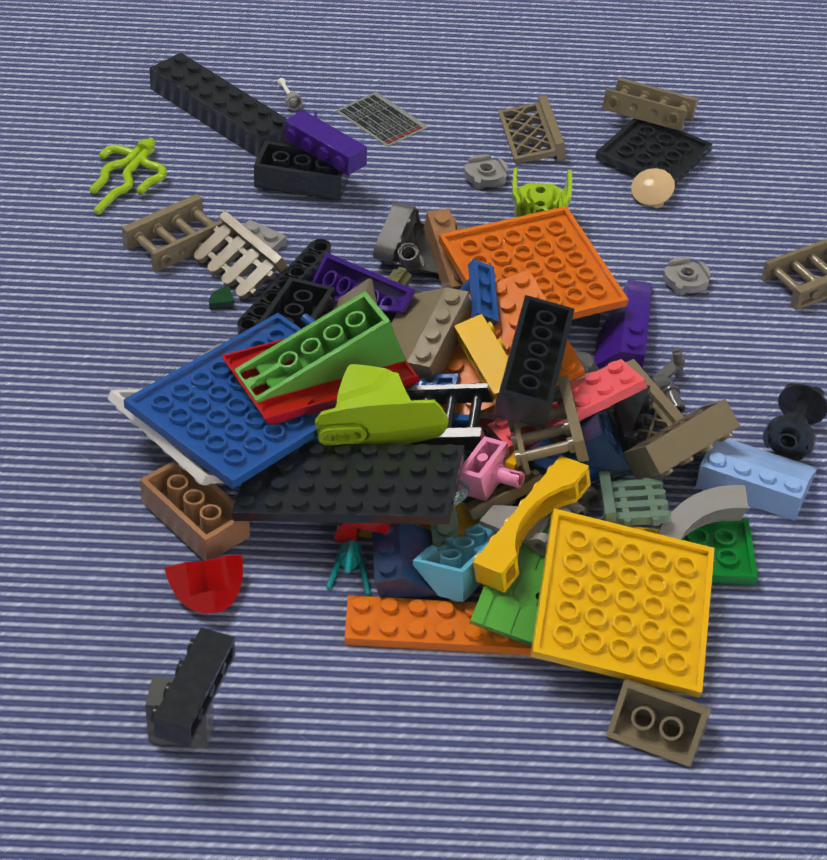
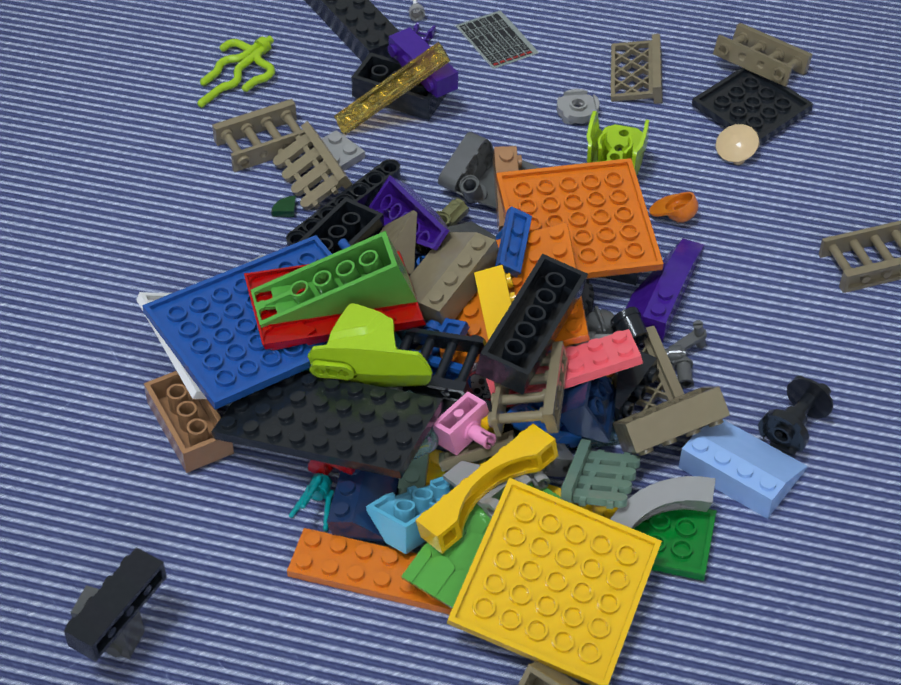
camera: 15 degrees right, 5 degrees up
(207, 584) = (178, 496): red brick -> none
(301, 170) = (392, 88): none -> clear yellow plate
(608, 354) = (630, 319): none -> black piece
(618, 250) = (677, 207): none -> orange cap
(695, 277) = (752, 240): light grey plate -> none

